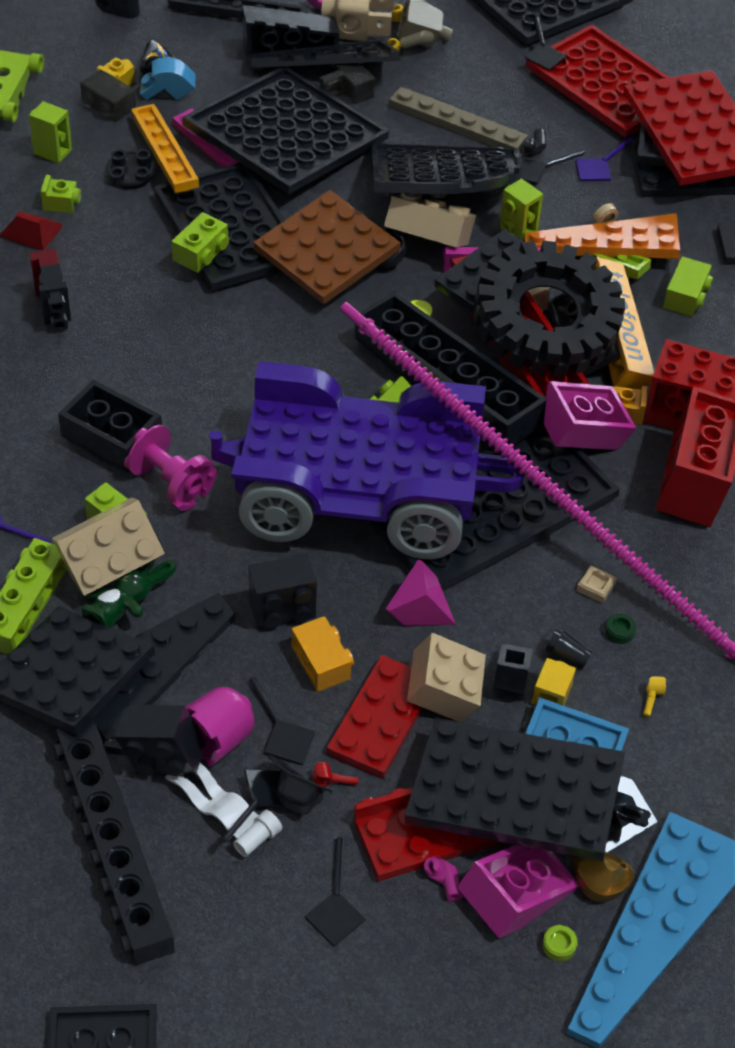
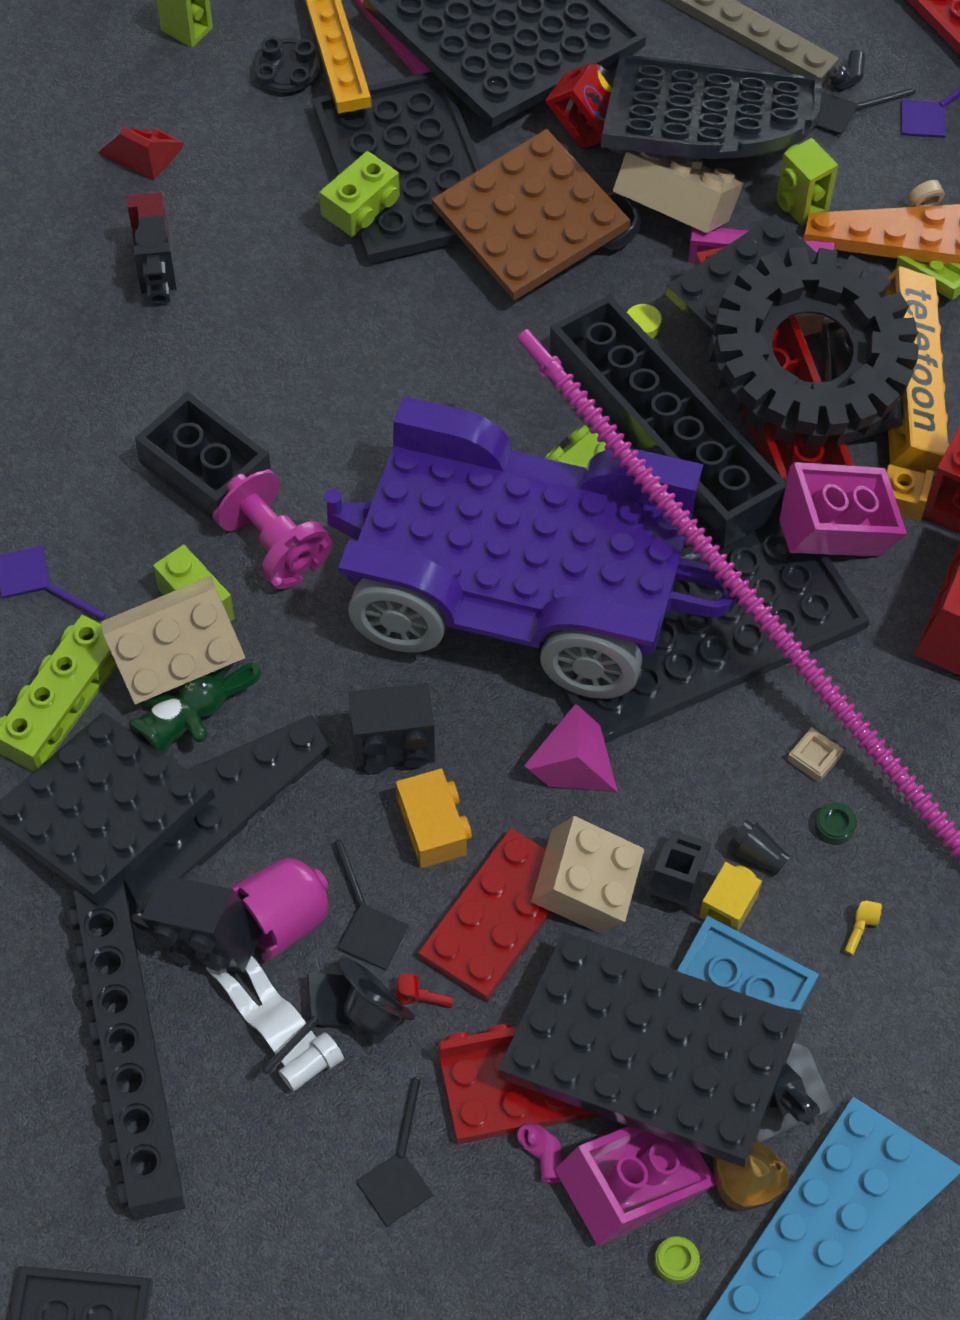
camera: 10 degrees right, 10 degrees up
(59, 195) = (184, 100): lime brick -> none
(353, 175) = (582, 103): none -> red torso

